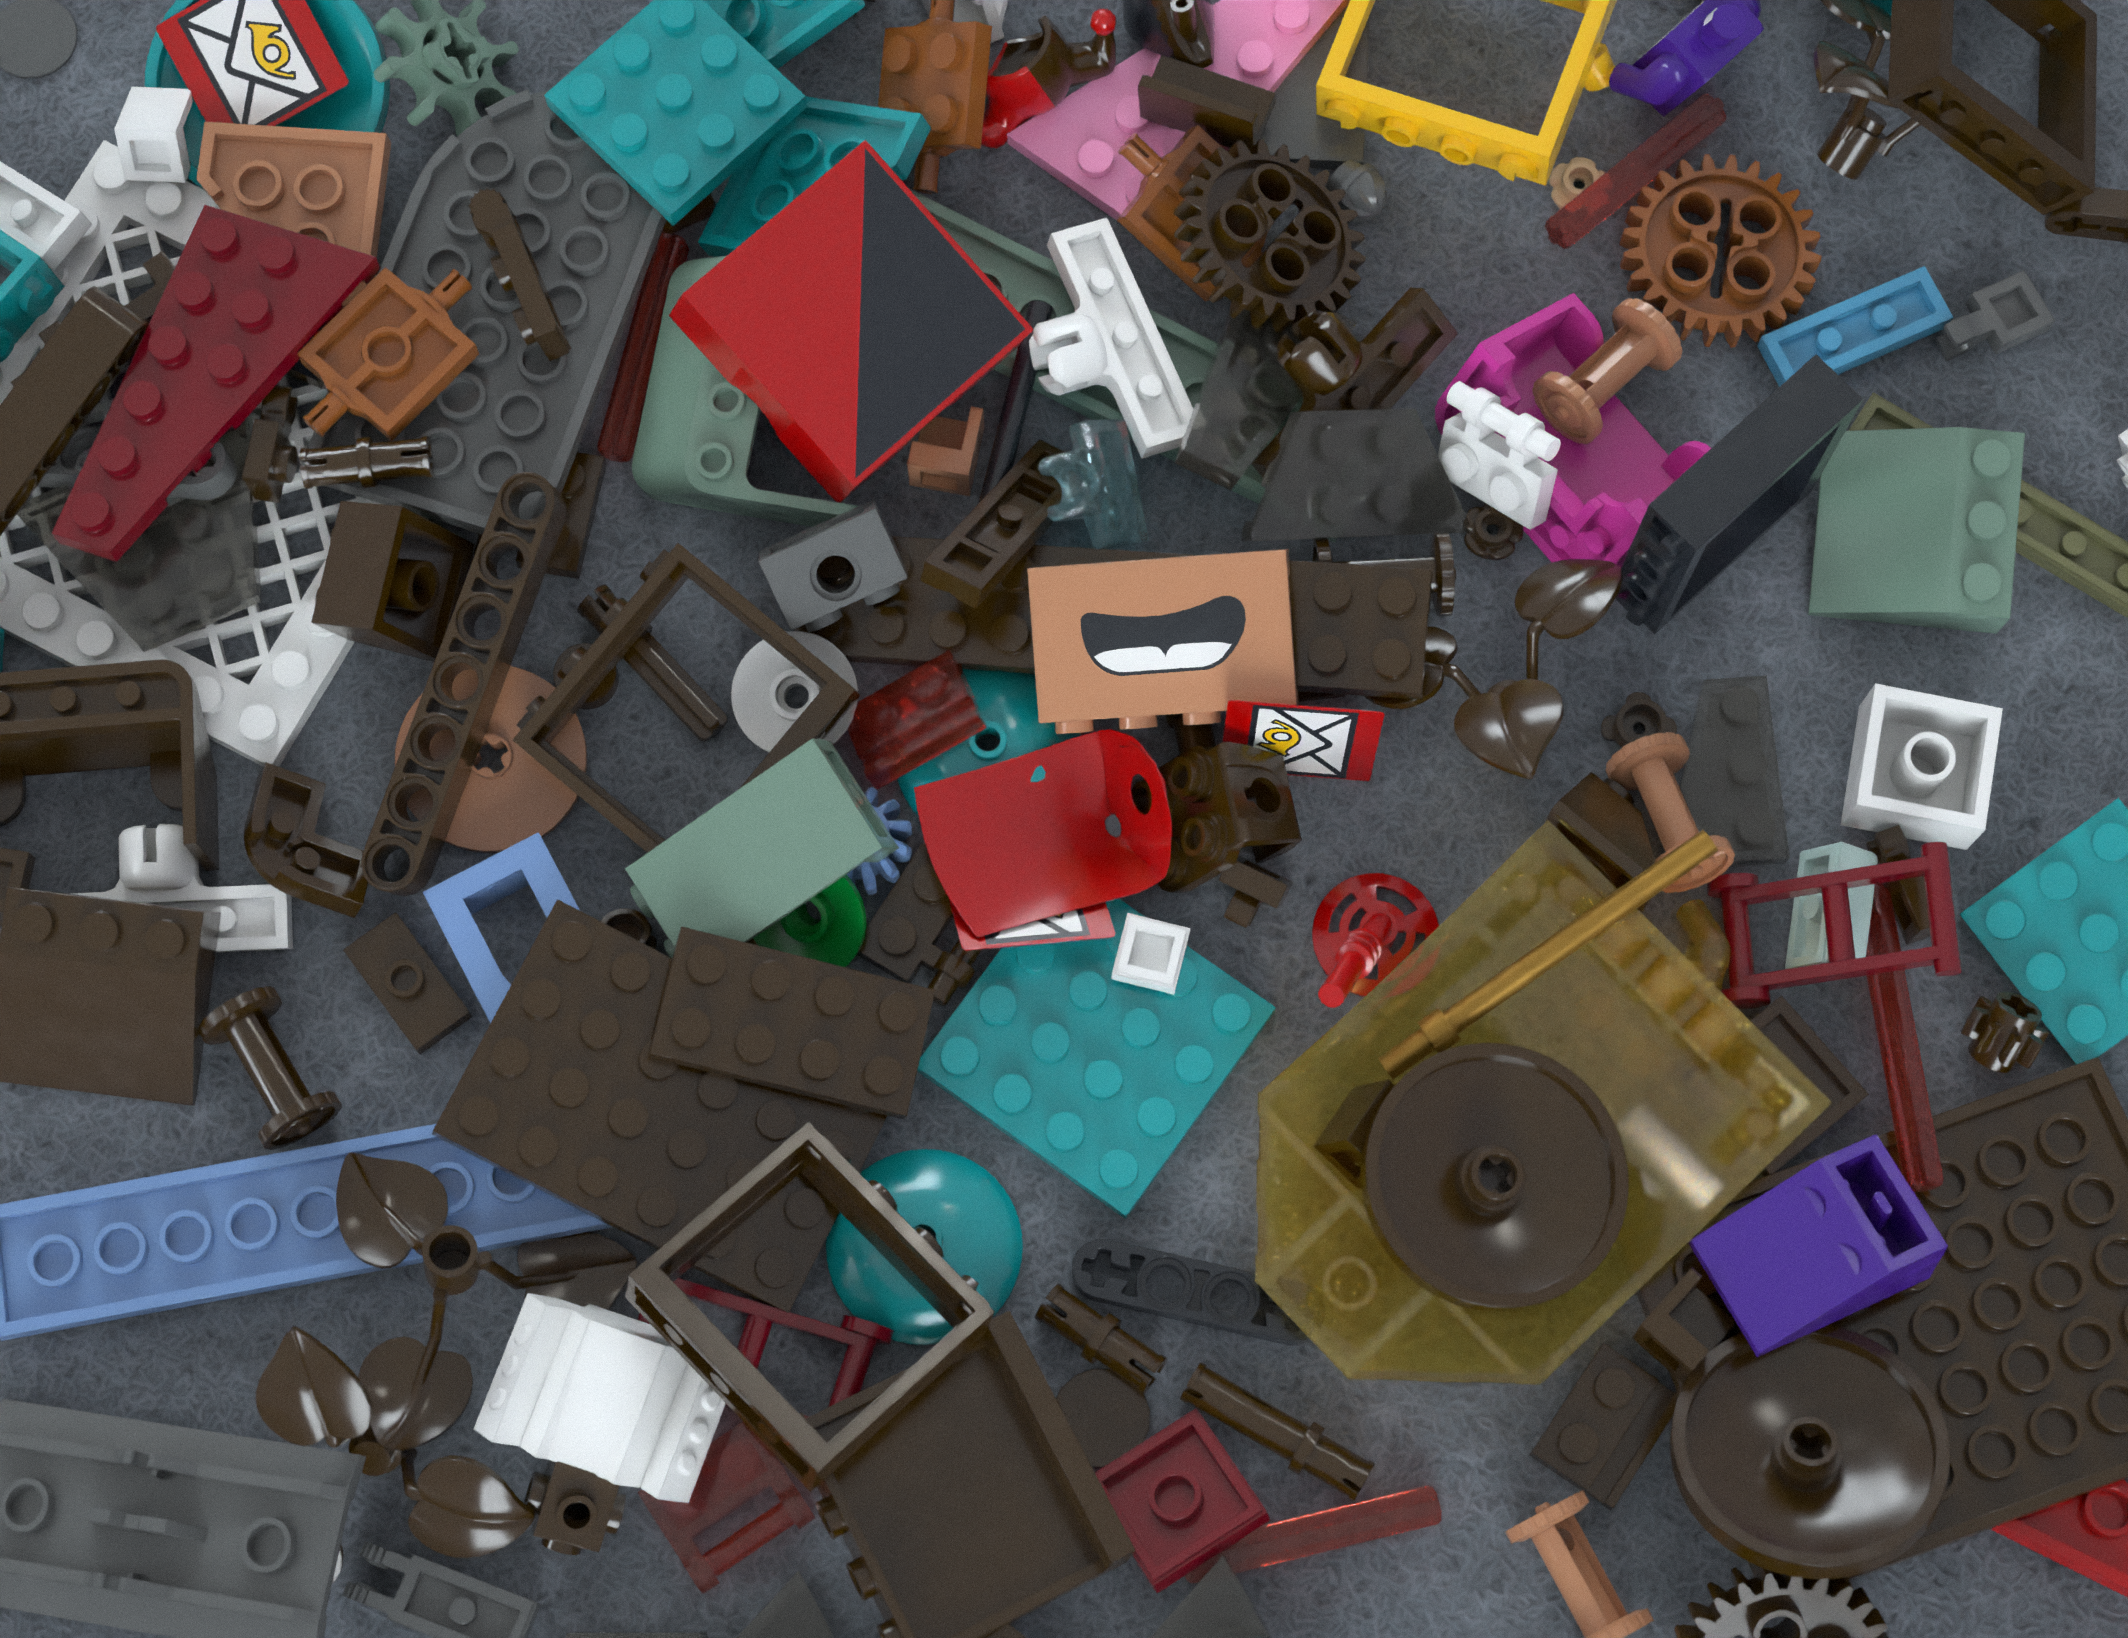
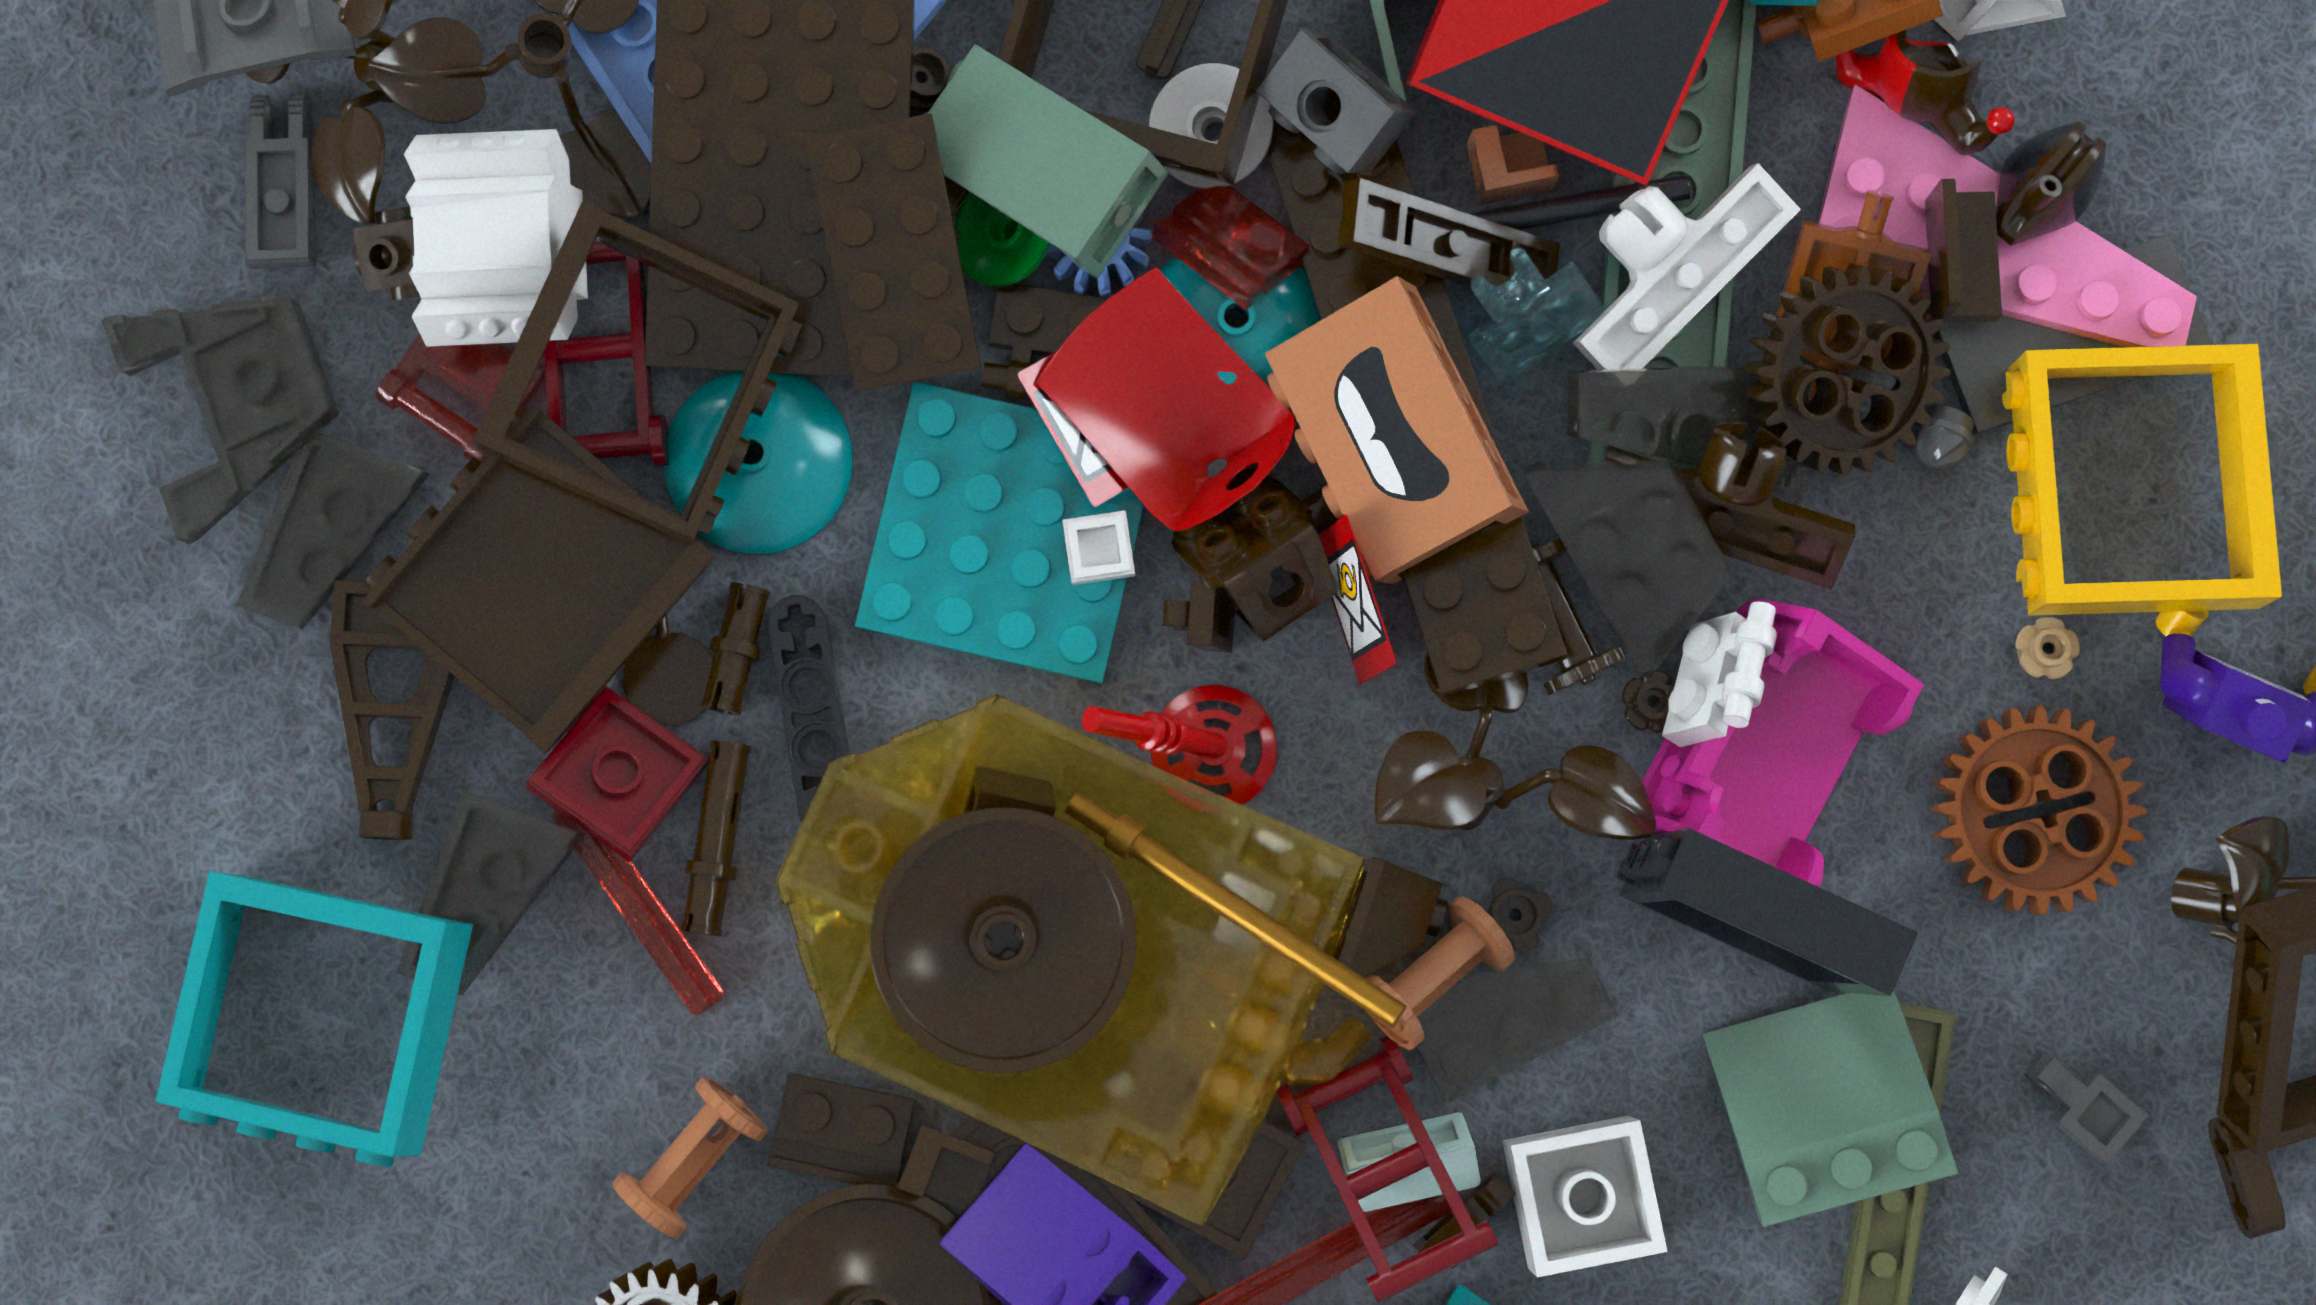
camera: 70 degrees right, 10 degrees up
(1574, 400) = (1860, 748): nougat hose -> none
(1635, 171) = (2084, 697): clear red axle -> none
(1859, 327) = (2011, 973): dark azure plate -> none

